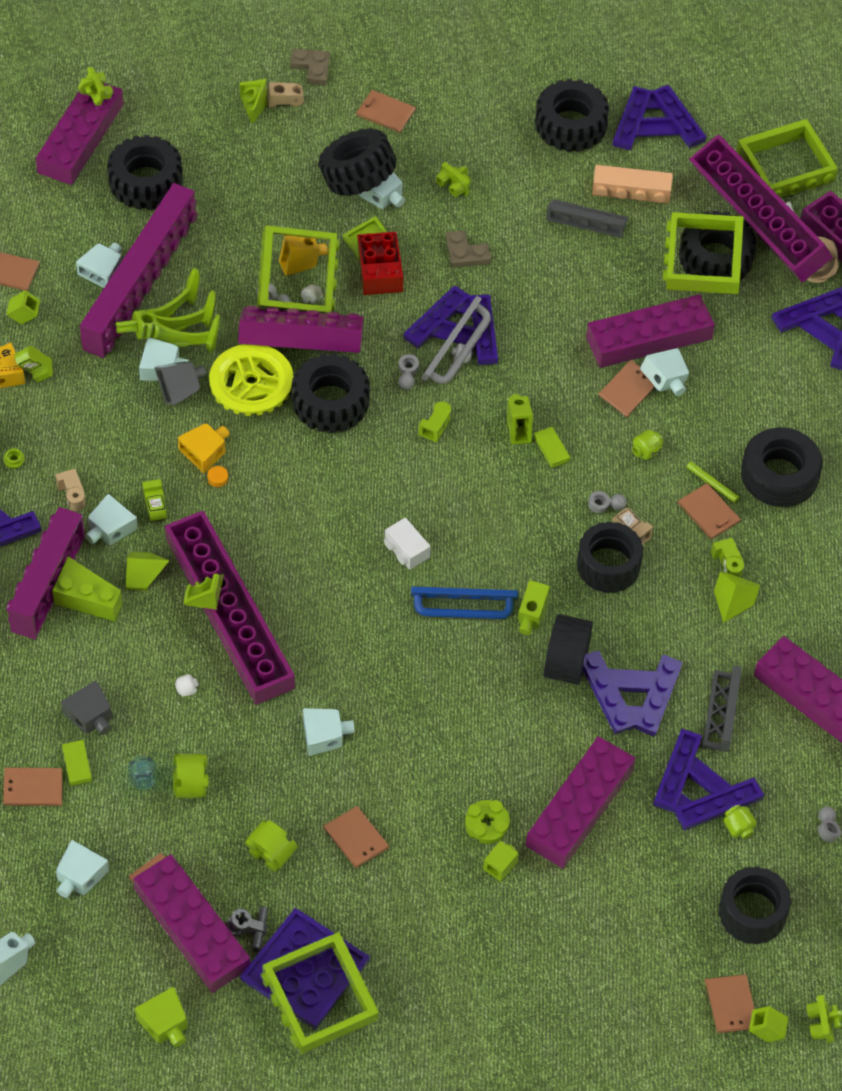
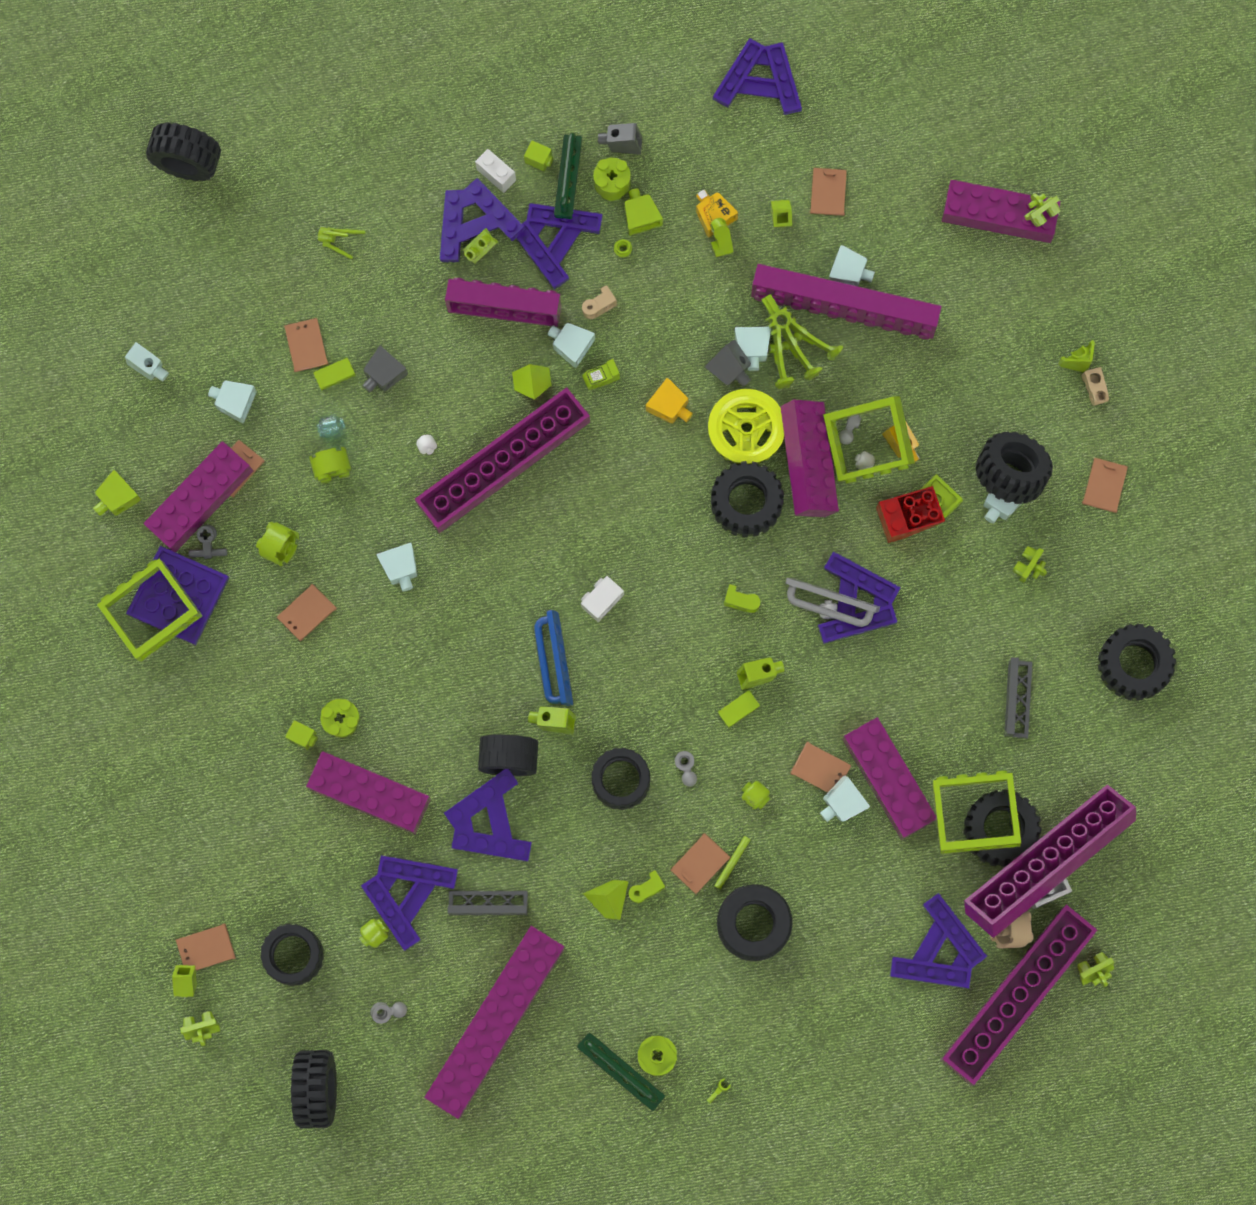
camera: 85 degrees right, 20 degrees up
(86, 592) = (496, 338): lime wedge -> none
(140, 153) = (969, 258): black tyre -> none
(205, 593) = (503, 436): lime slope -> none
(217, 476) = (642, 422): light orange tile -> none
(315, 61) = (1148, 407): dark tan plate -> none
(406, 380) = (782, 564): light grey plate -> none
(464, 255) = (944, 589): dark tan plate -> none
(628, 518) = (663, 795): tan leg -> none
(632, 184) = (1067, 735): light nougat brick -> none
(677, 119) = (1146, 726): dark purple plate -> none
(784, 135) = (1163, 866): lime window -> none

